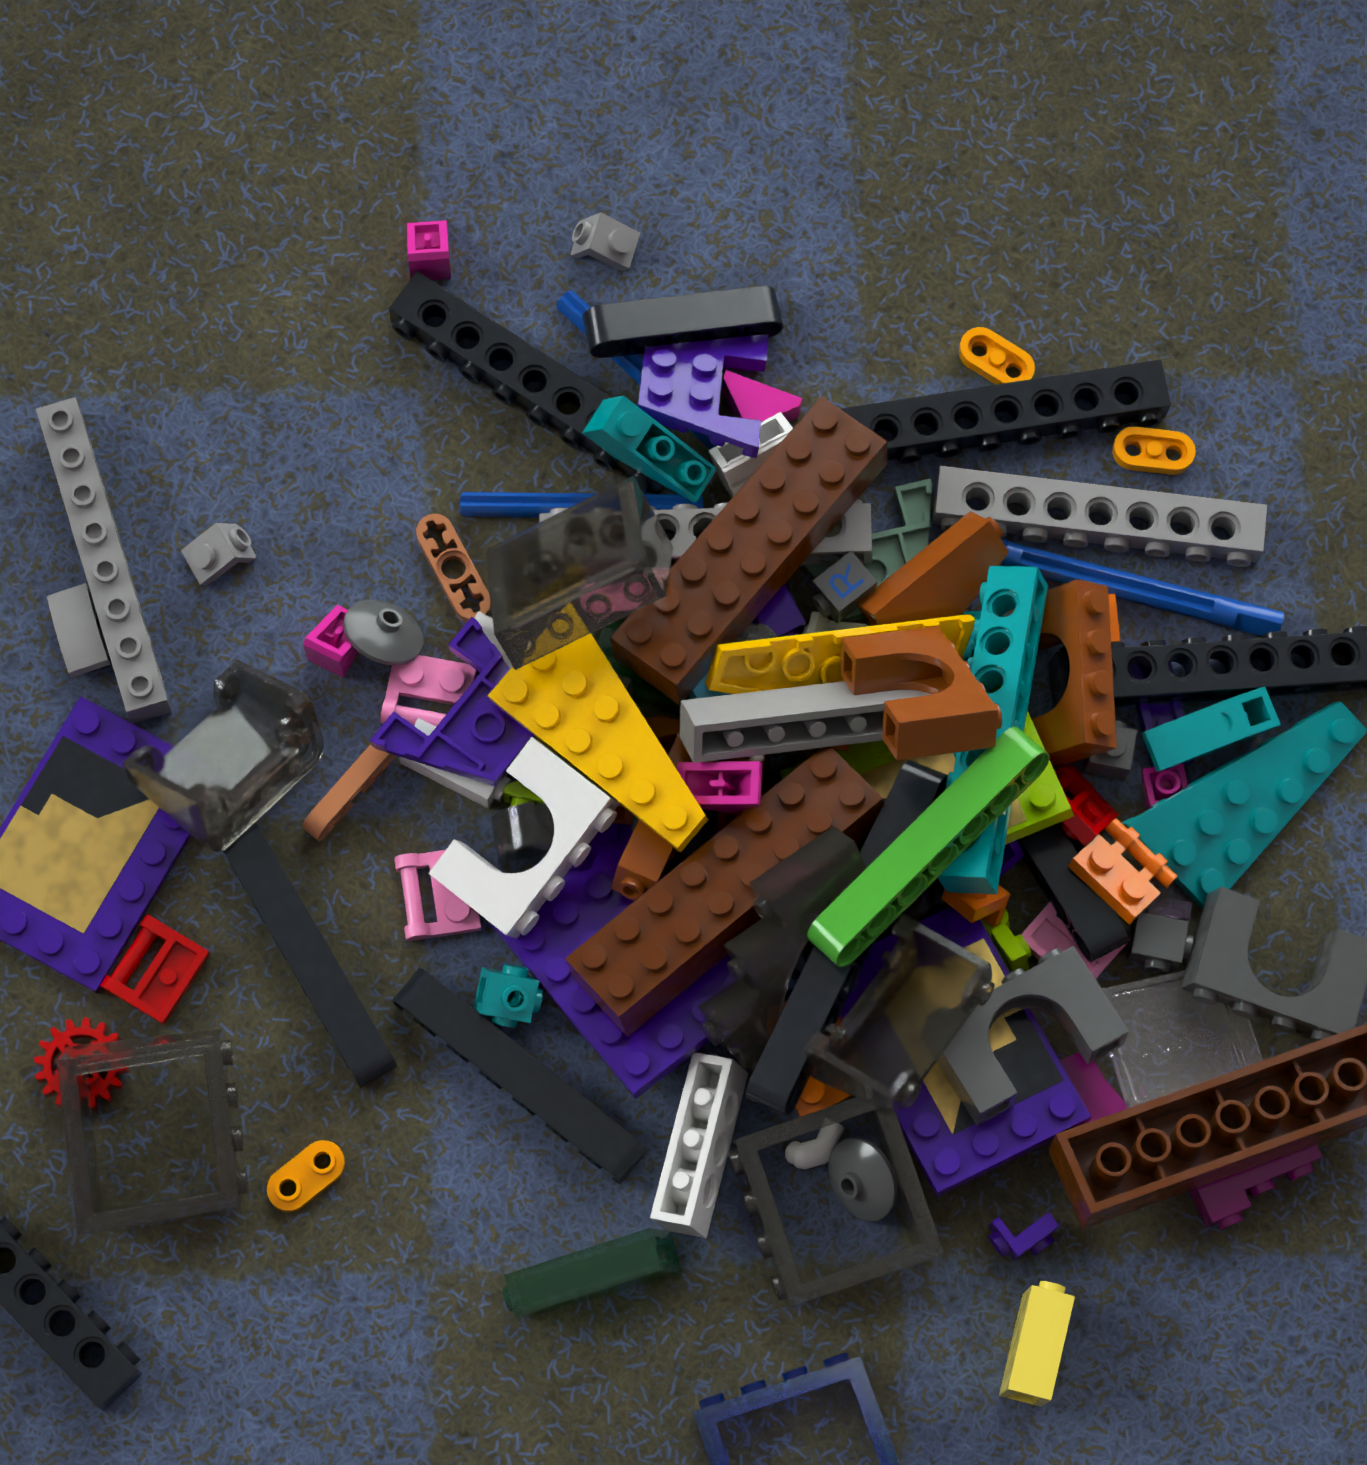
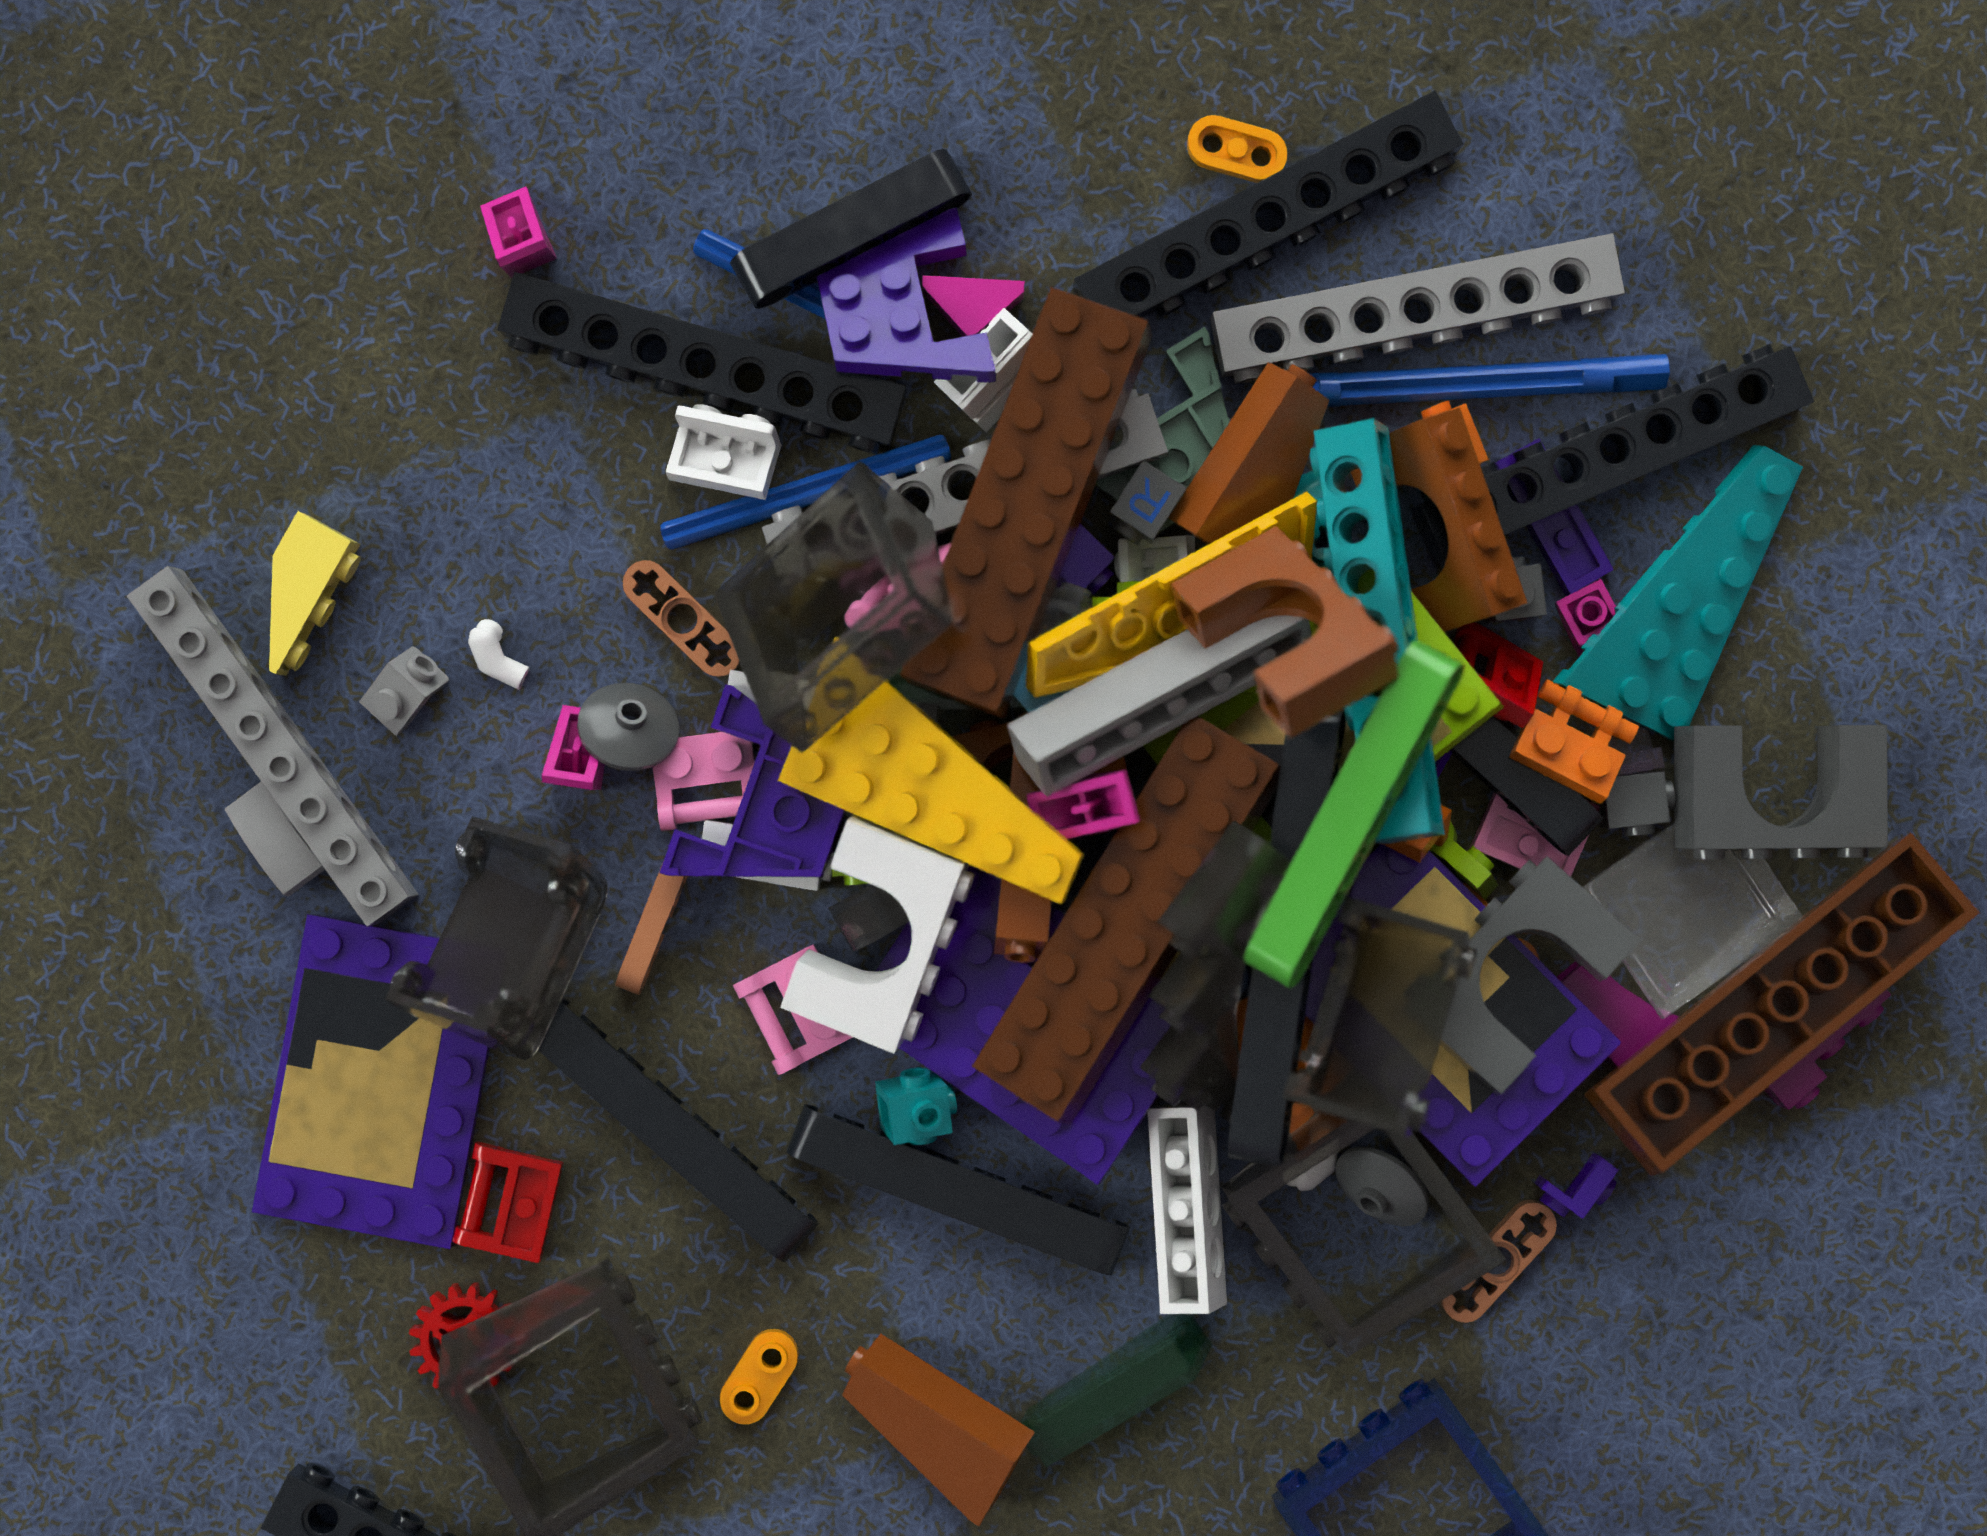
camera: 15 degrees left, 15 degrees up
(175, 443) = (304, 576): none -> light yellow slope
(294, 547) = (490, 657): none -> white arm
(440, 1257) = (937, 1425): none -> dark orange slope
(529, 452) = (724, 451): none -> white bracket
(605, 241) = (724, 153): light grey bracket -> none
(648, 447) = (864, 408): teal slope -> none
(961, 1252) = (1518, 1262): none -> nougat beam
(1037, 1344) = (1633, 1312): light yellow brick -> none
(1153, 447) = (1455, 202): light orange plate -> none
(1211, 729) = (1626, 532): teal slope -> none

